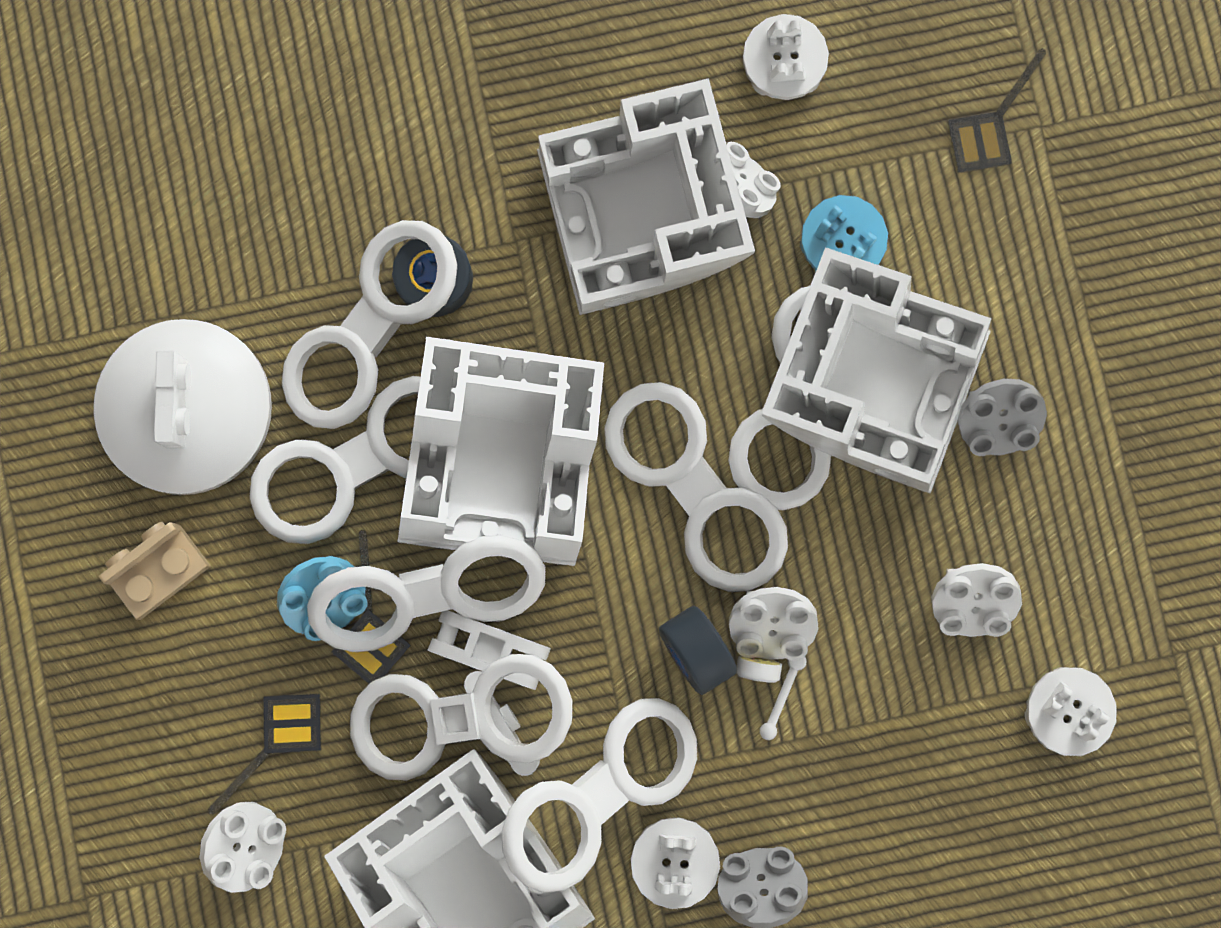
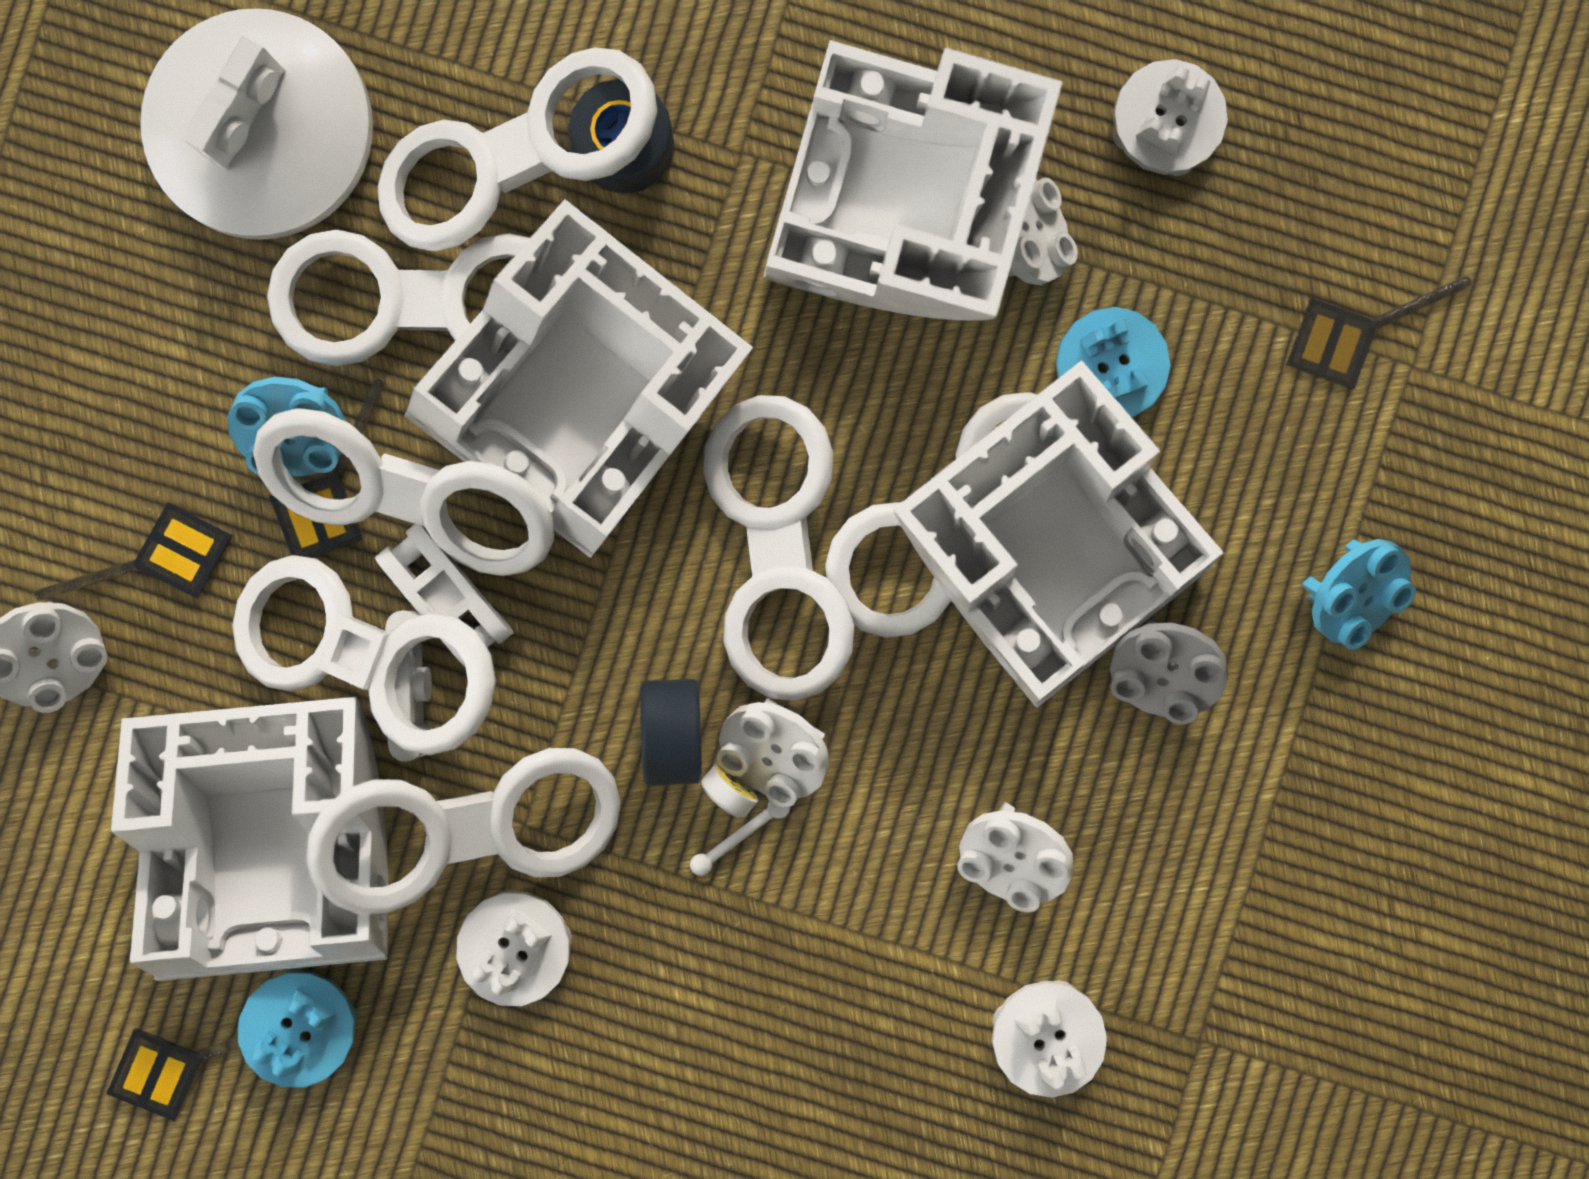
camera: 25 degrees right, 5 degrees up
(154, 568) = (124, 288): tan bracket -> none
(783, 883) = (615, 1044): light grey plate -> none
(1096, 292) = (1361, 592): none -> medium azure plate

